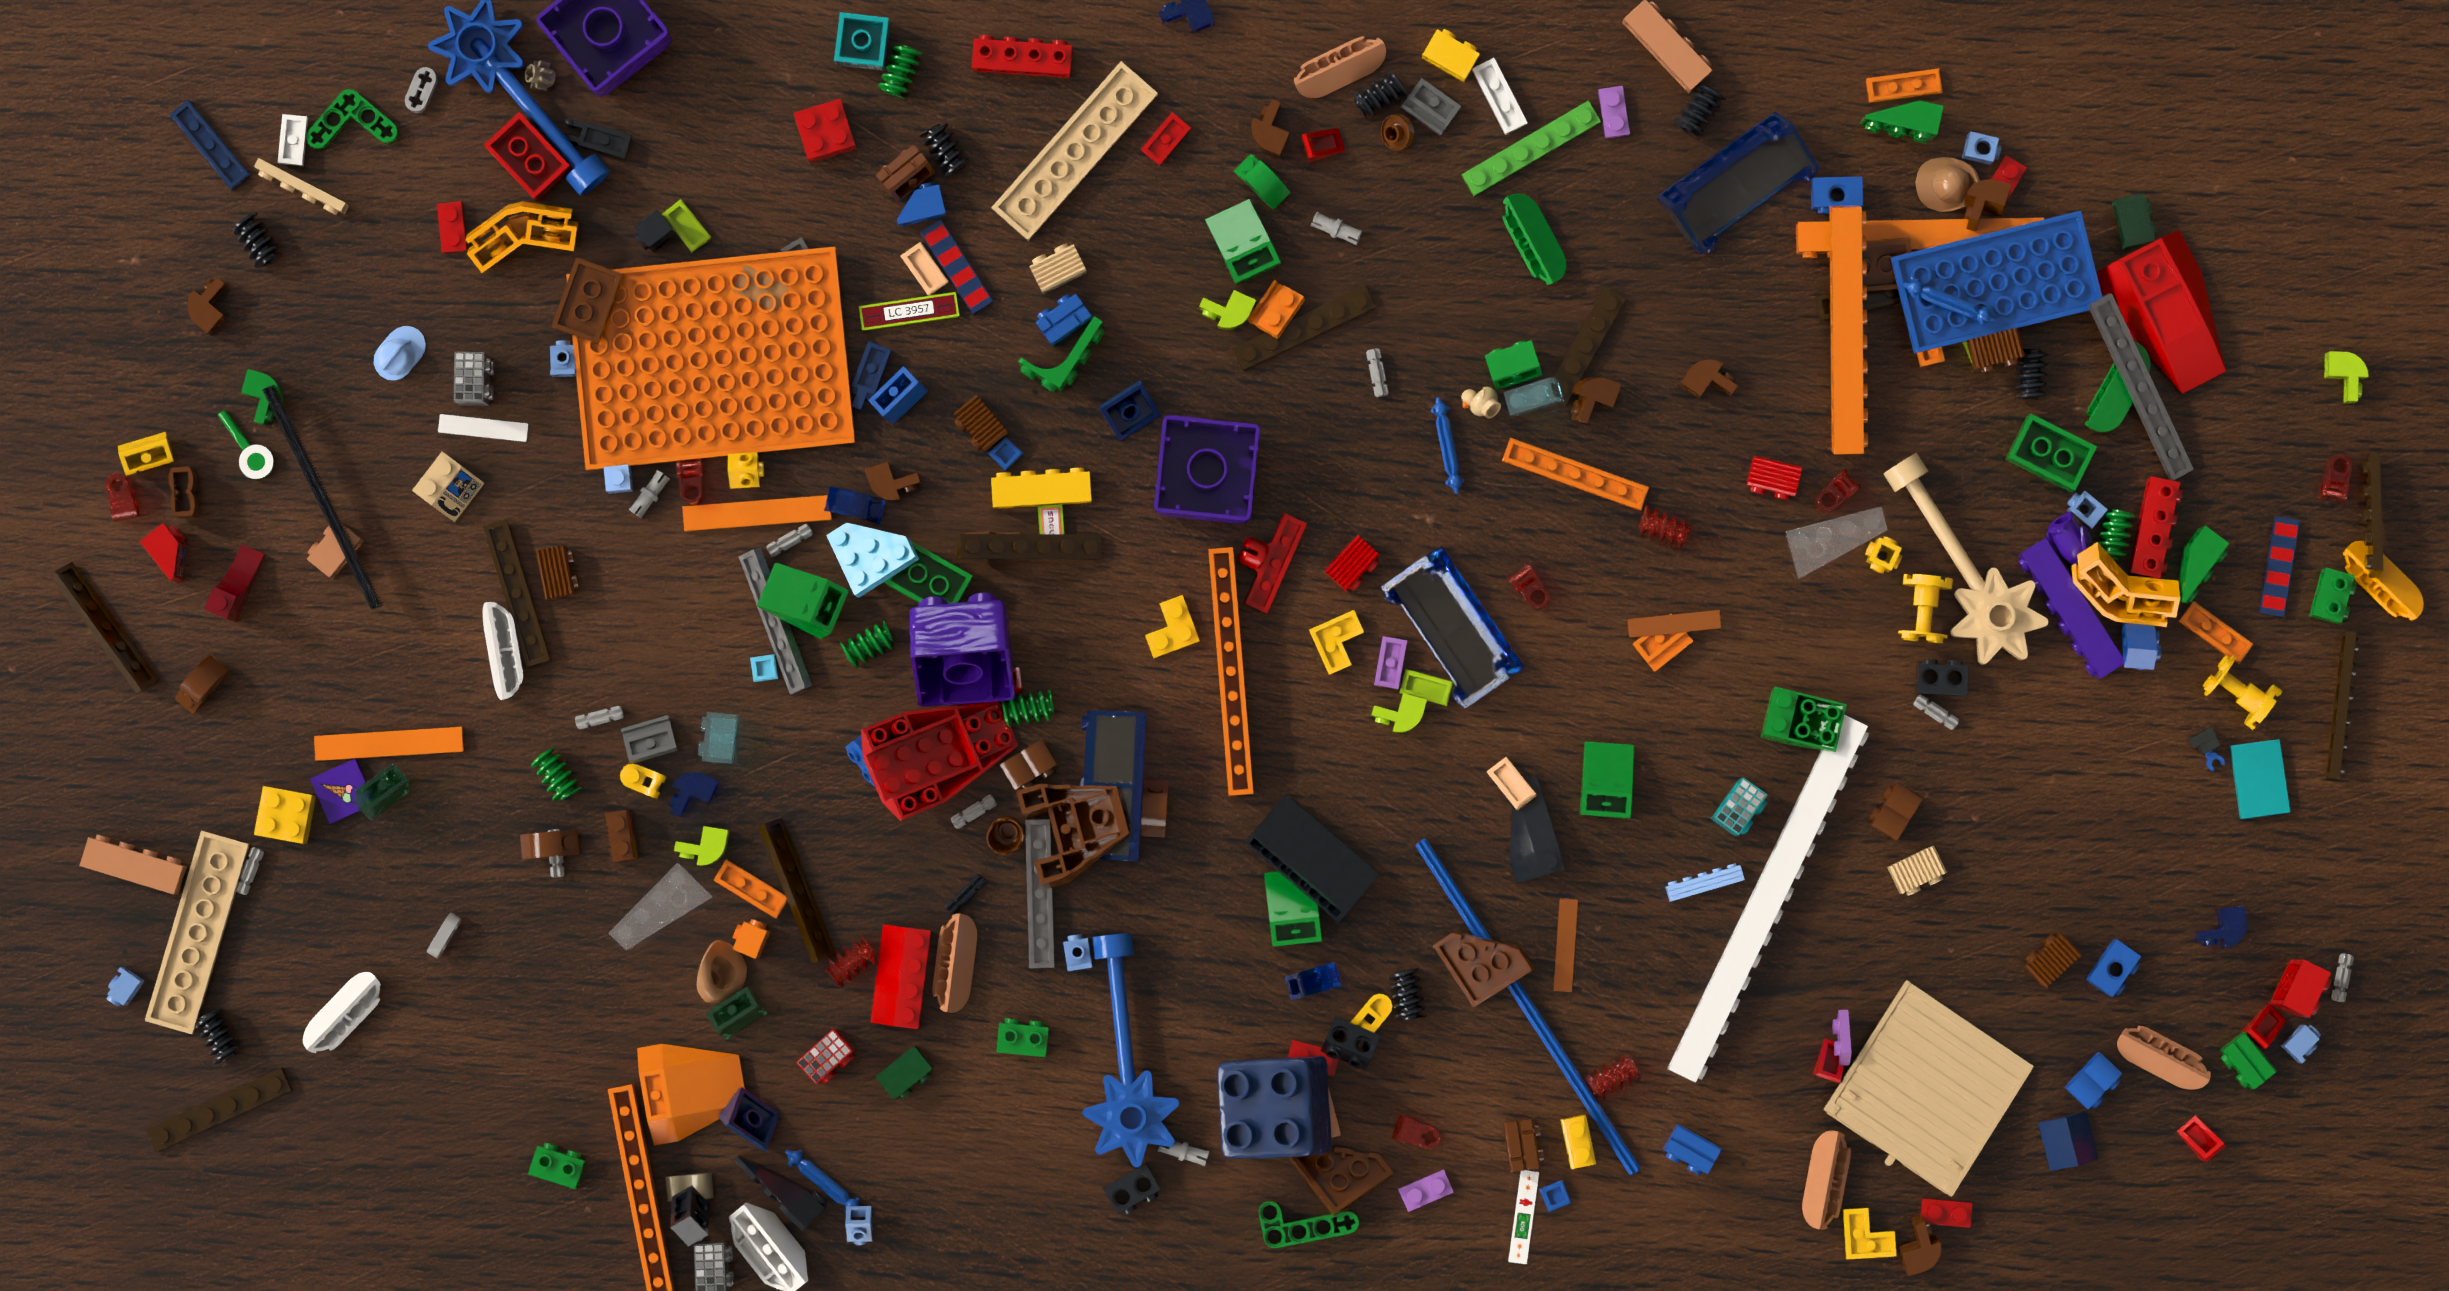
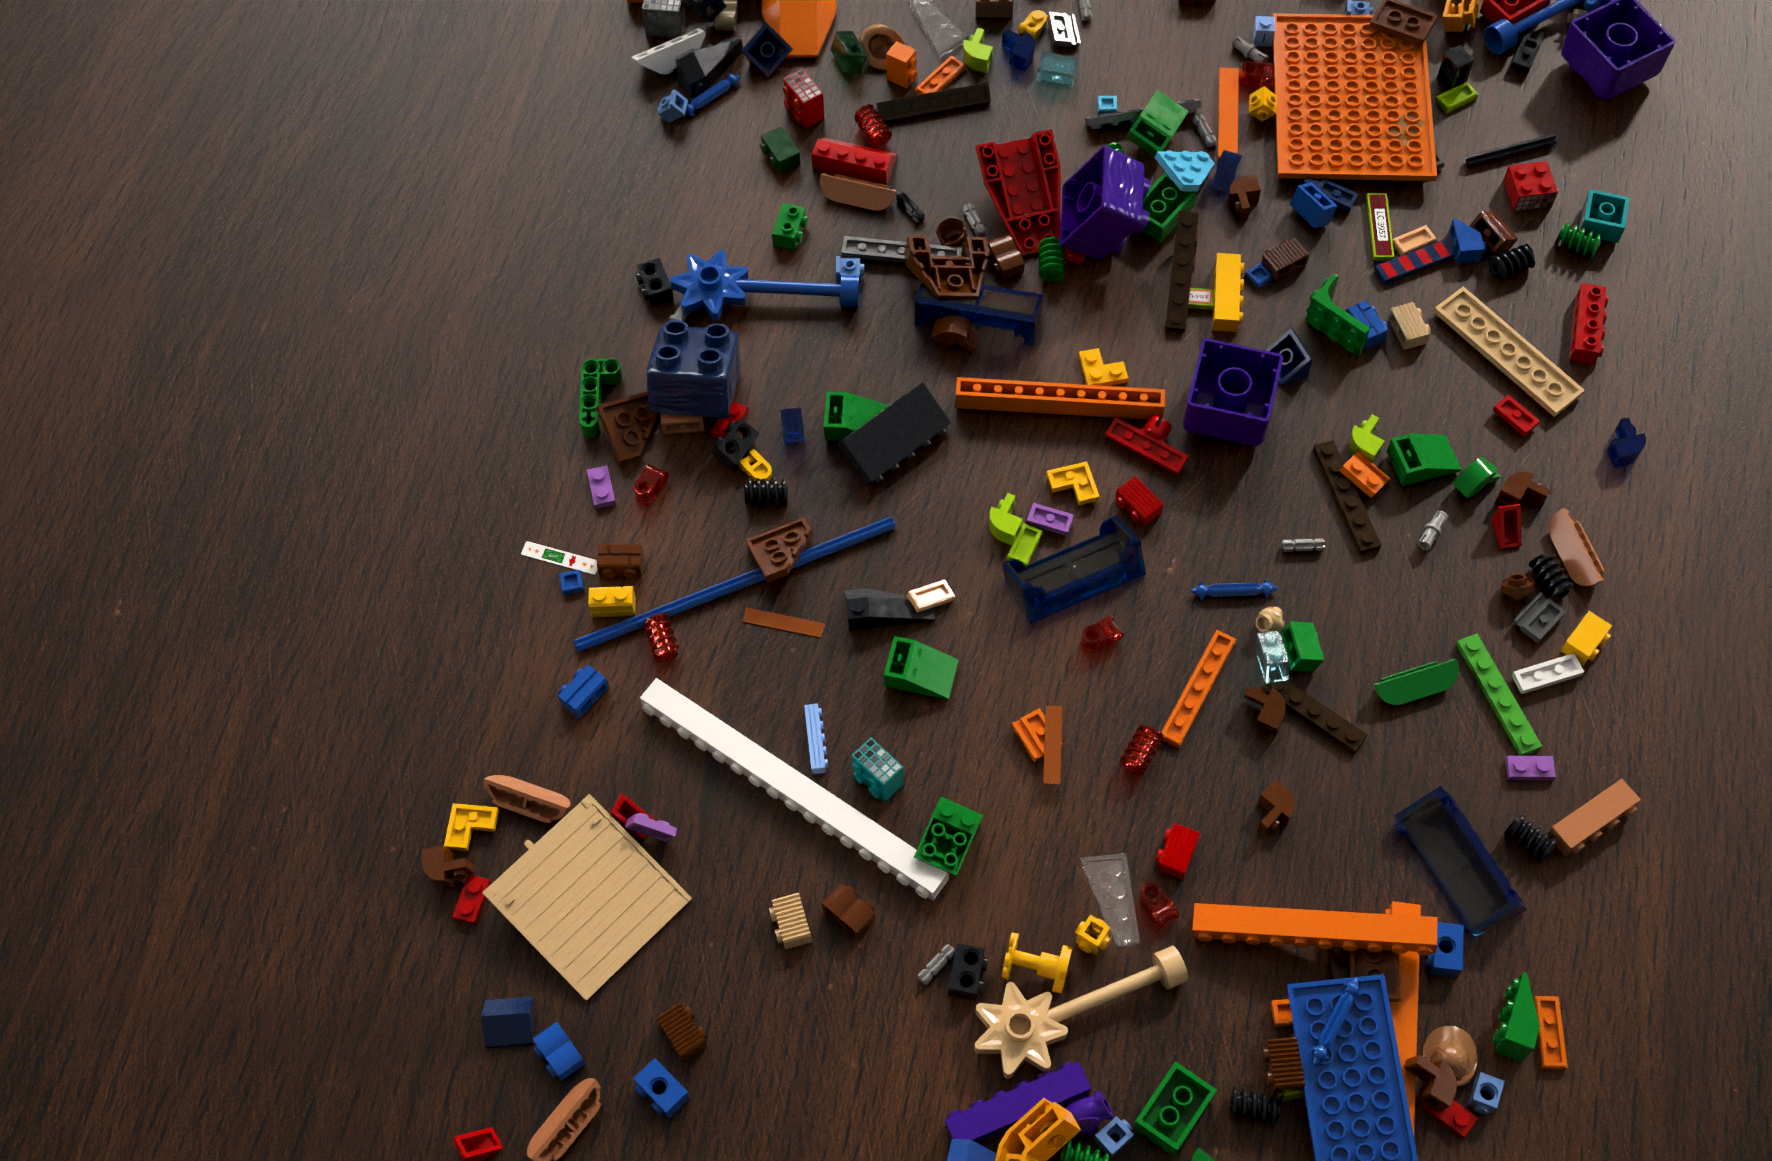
camera: 100 degrees right, 25 degrees down
(764, 155) = (1510, 150): none -> black axle

